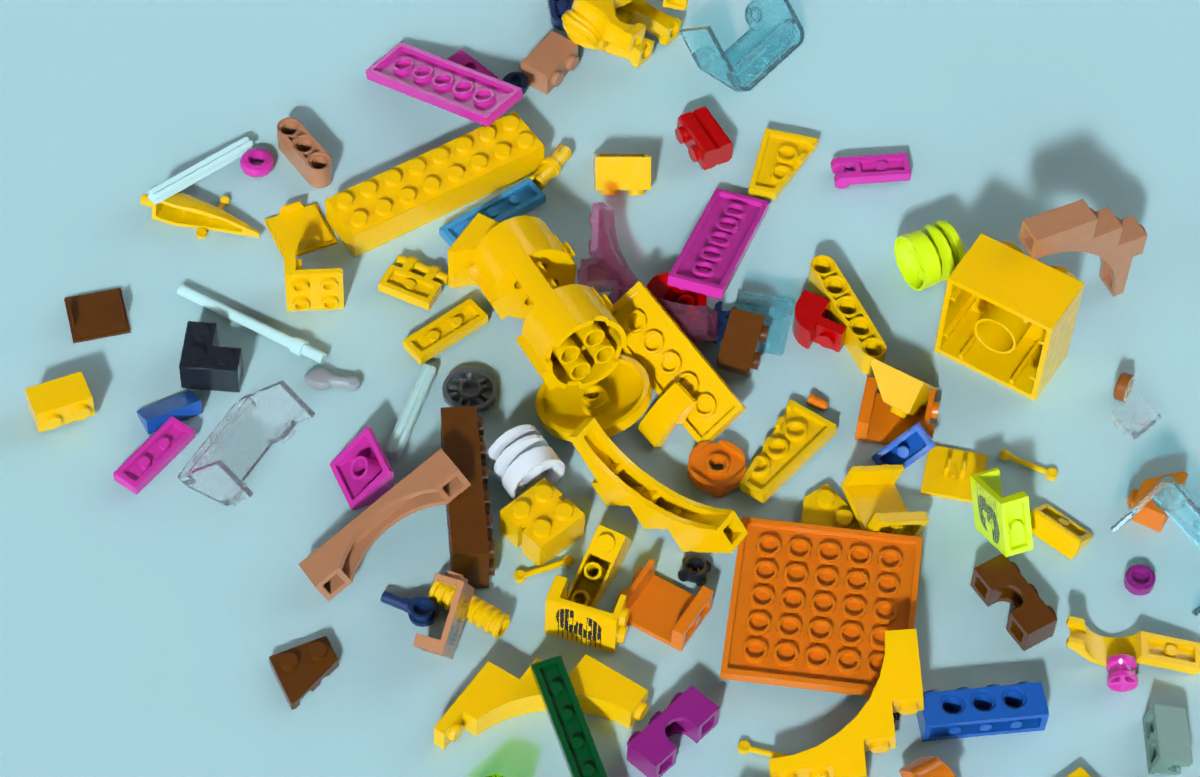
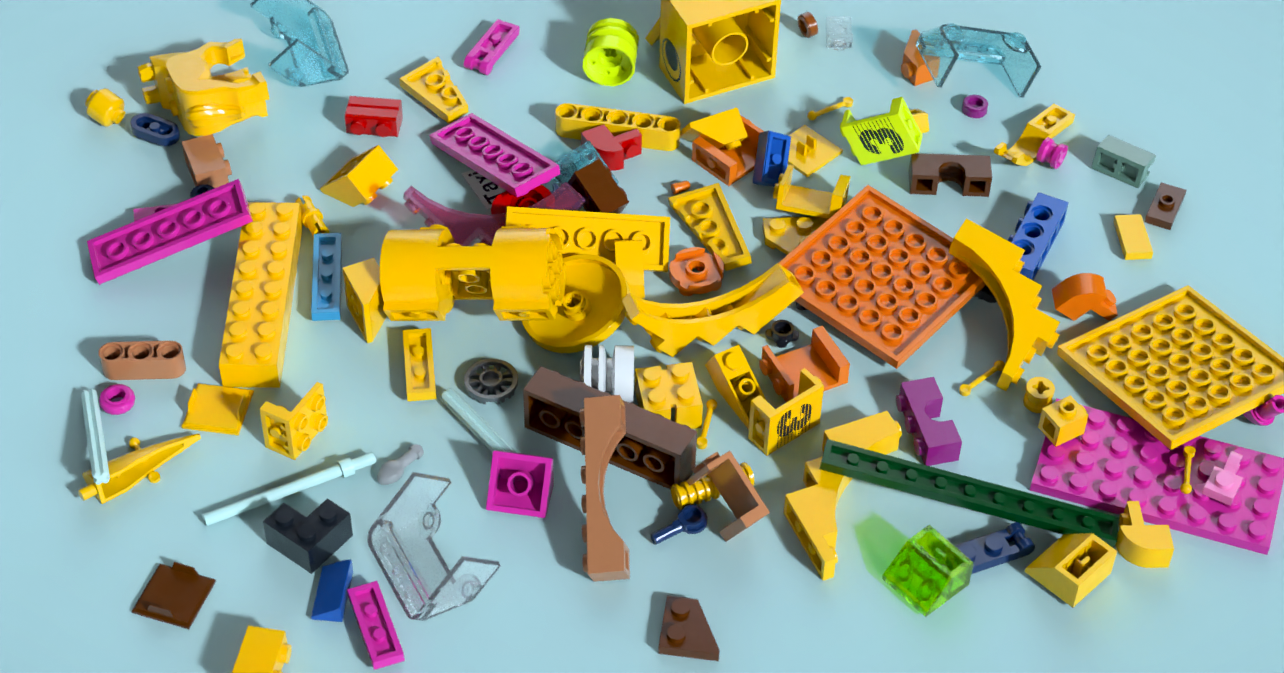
camera: 55 degrees left, 5 degrees down
(411, 287) = (348, 359): yellow plate -> none

